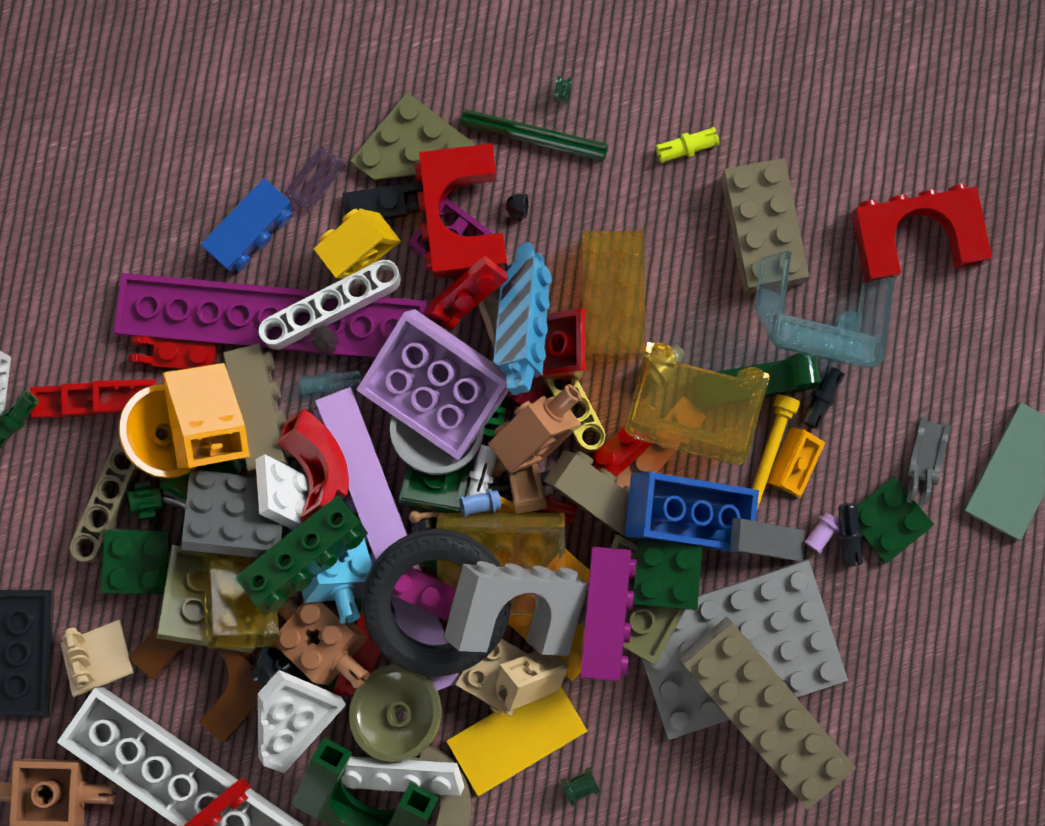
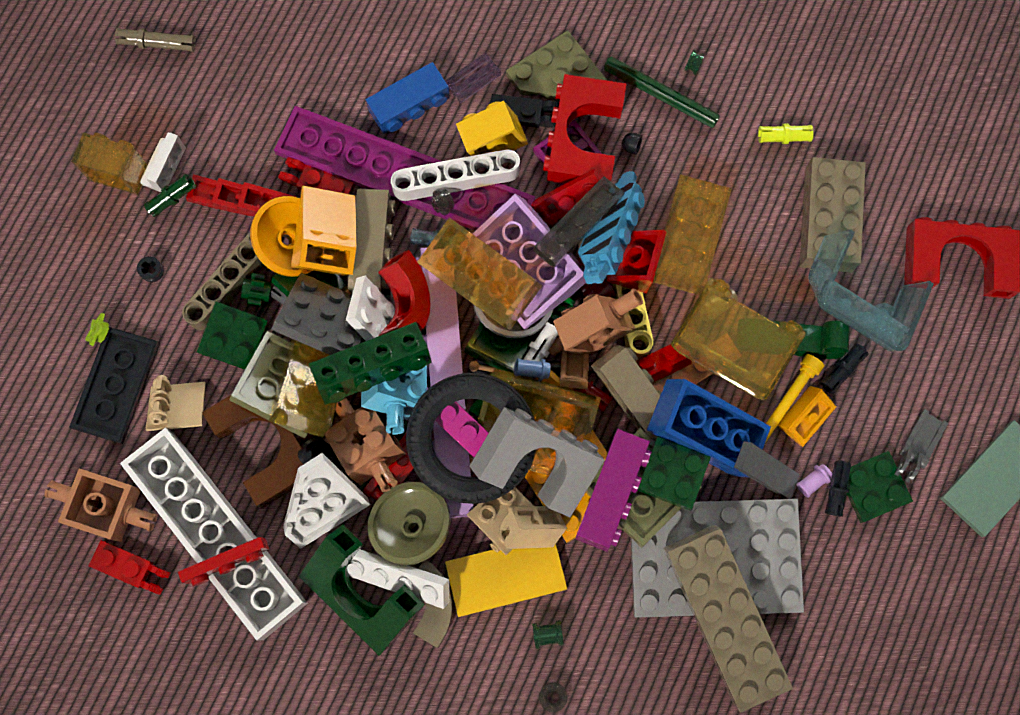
camera: 15 degrees right, 5 degrees down
(15, 500) = (152, 261): none -> black bush
(391, 415) = (479, 274): none -> clear yellow brick
(484, 325) = (578, 222): none -> clear smoke plate

